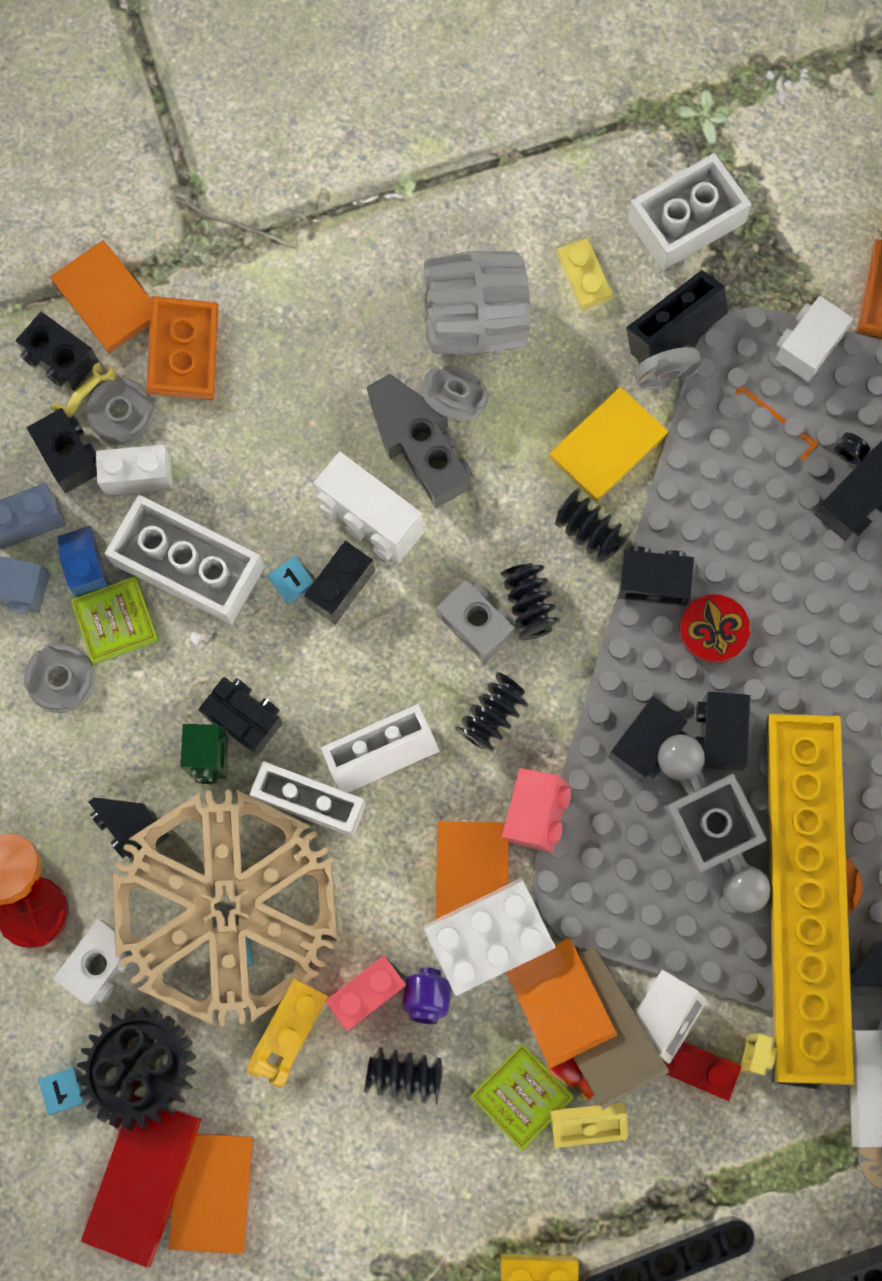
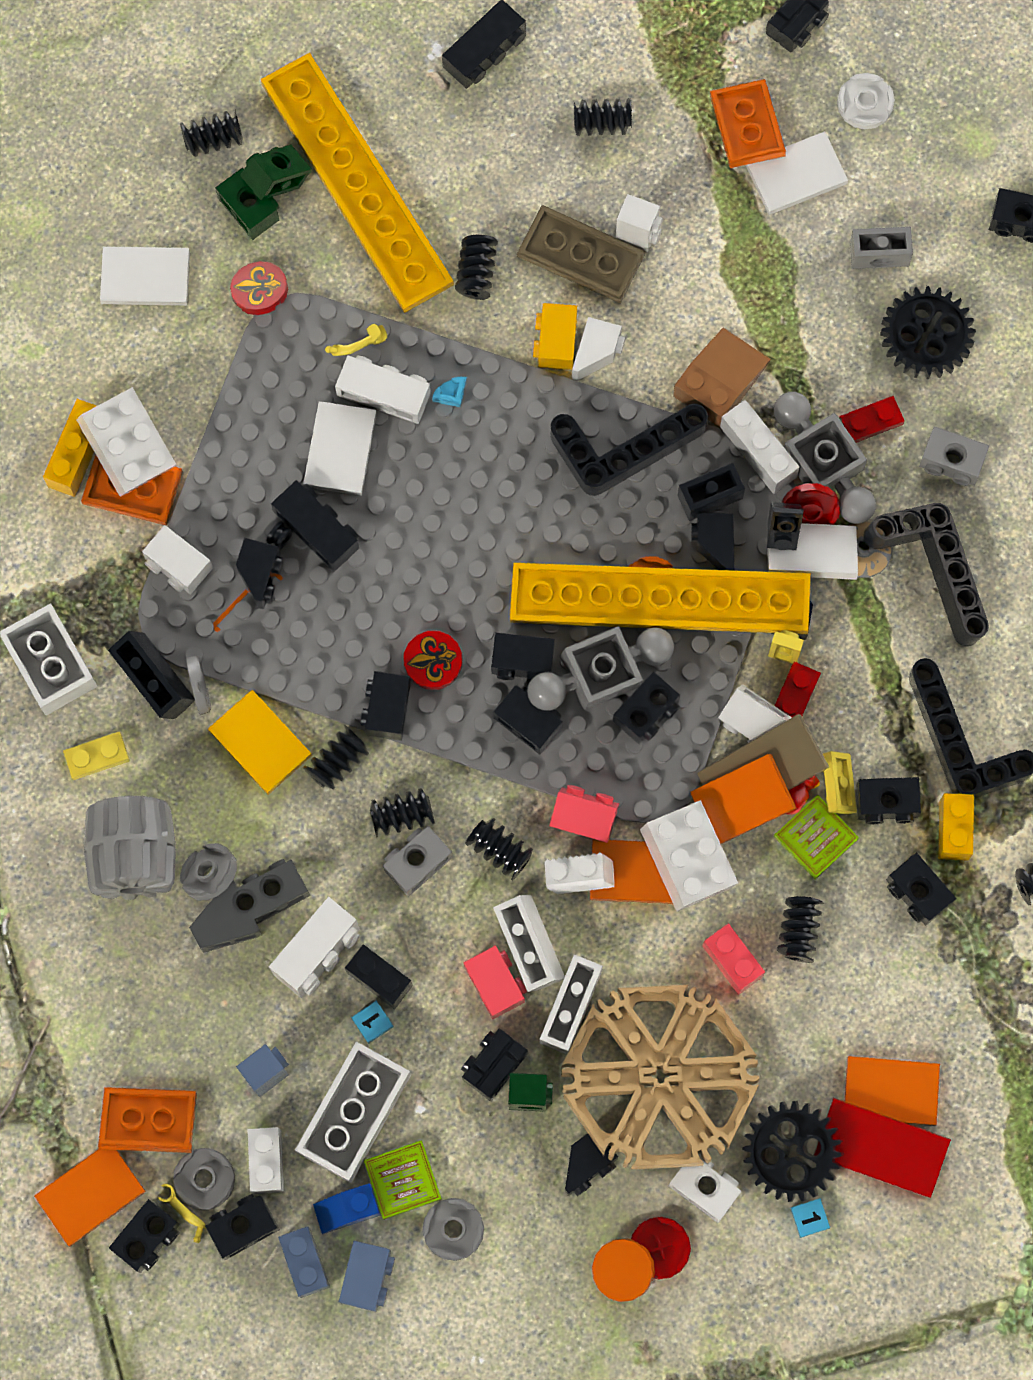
camera: 90 degrees left, 0 degrees up
(230, 459) = (264, 1069): none -> sand blue brick
(287, 1032) = (764, 1026): yellow plate -> none
(336, 712) = (495, 982): none -> coral brick
(426, 996) = (737, 909): dark purple head -> none
(449, 1251) = (918, 872): none -> black brick
(464, 805) = (579, 873): none -> white brick
(580, 1210) = (904, 791): none -> black brick
(675, 873) = (641, 704): none -> black brick
(808, 426) = (257, 567): none -> black slope

